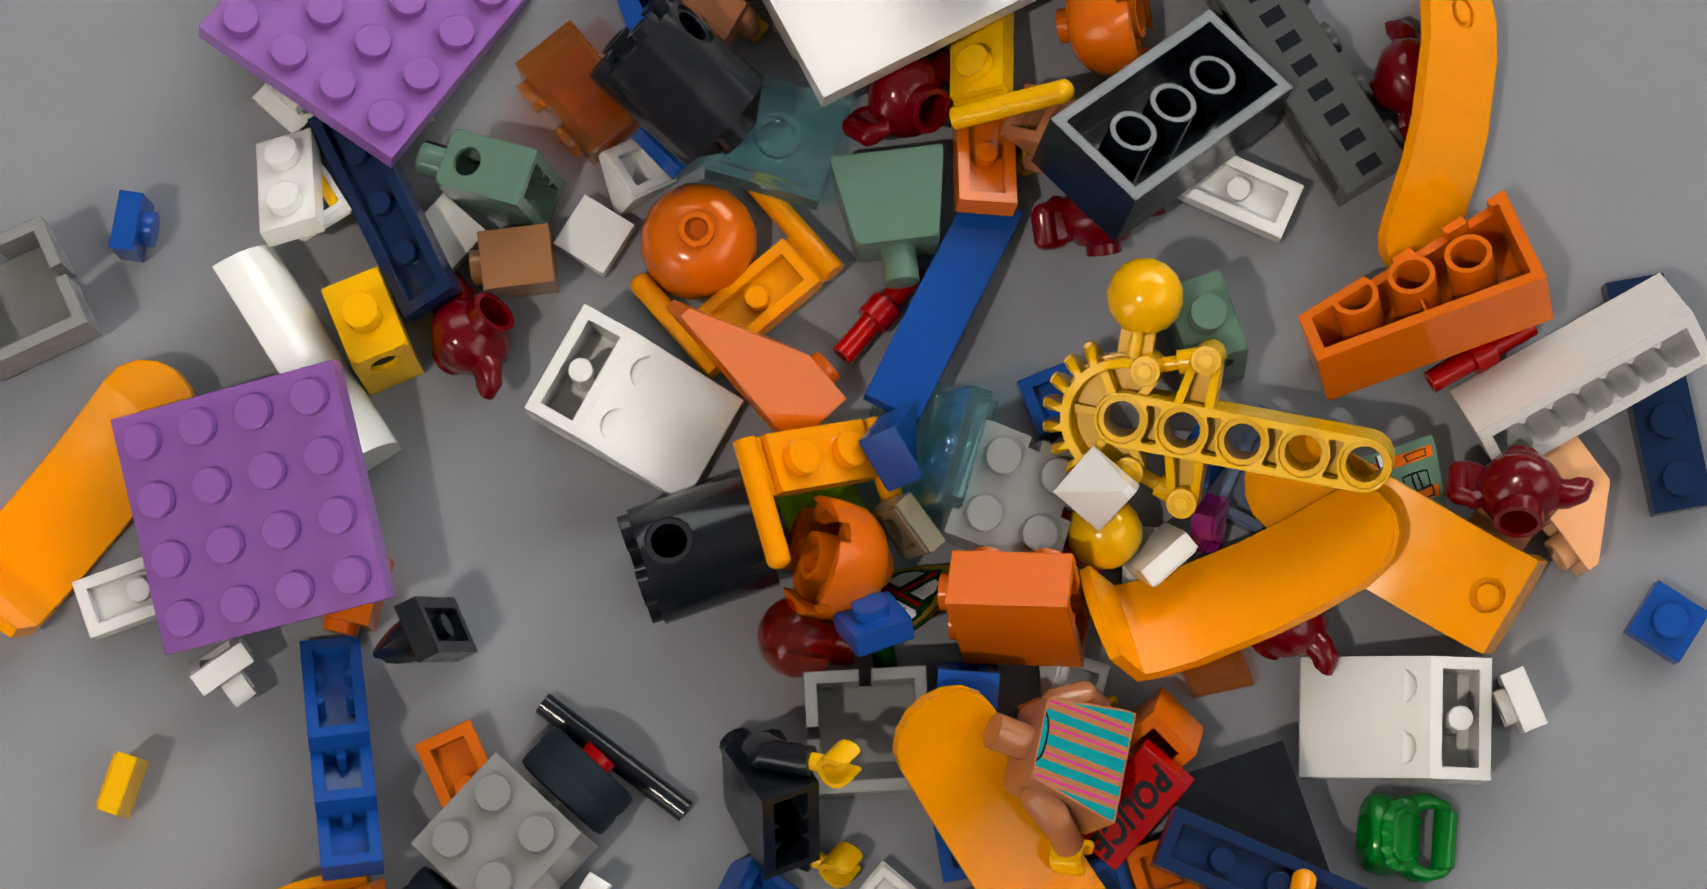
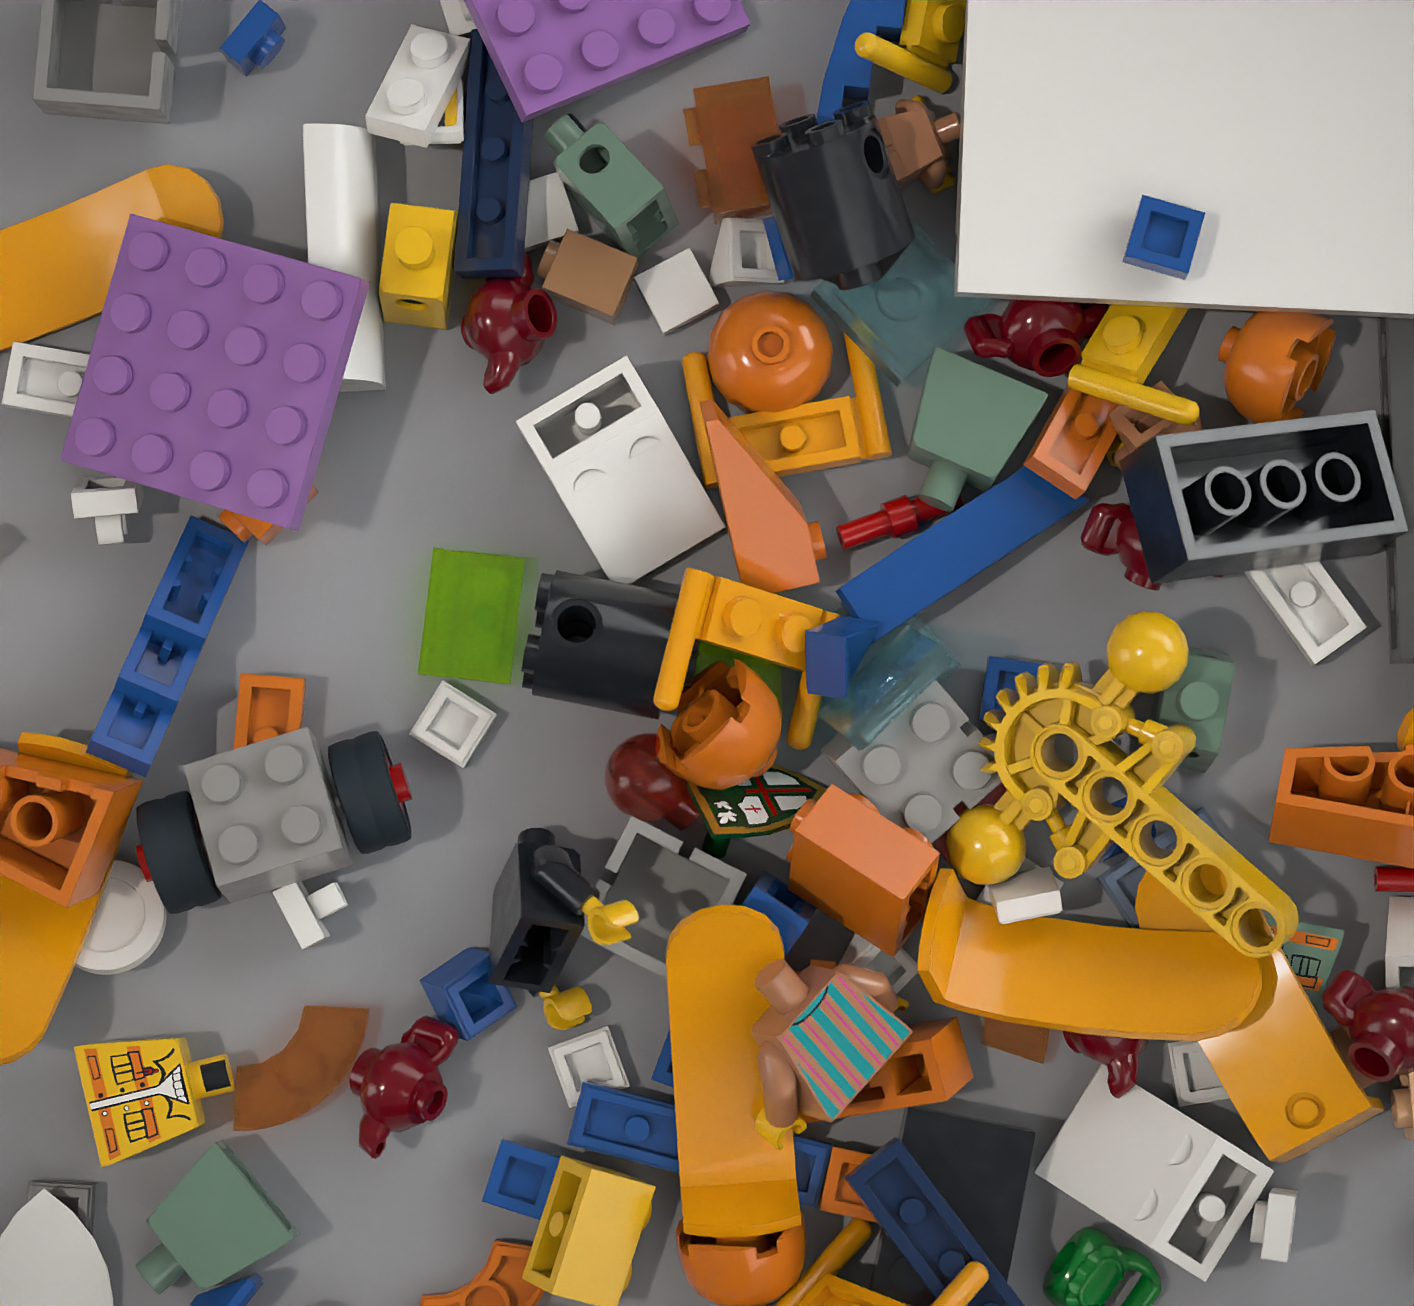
camera: 35 degrees right, 5 degrees up
(426, 632) = (310, 578): black tile -> none
(578, 591) = (471, 616): none -> clear neon green plate
(613, 688) = (453, 724): none -> white tile
(626, 765) = (423, 802): black bar -> none
(874, 623) = (720, 809): blue plate -> none
(908, 526) = (806, 735): dark tan tile -> none
(1096, 488) = (999, 803): white slope -> none
(1148, 791) = (882, 1109): red tile -> none
(1209, 523) = (1089, 892): magenta tile -> none
(1379, 622) = (1192, 1074): none -> white tile

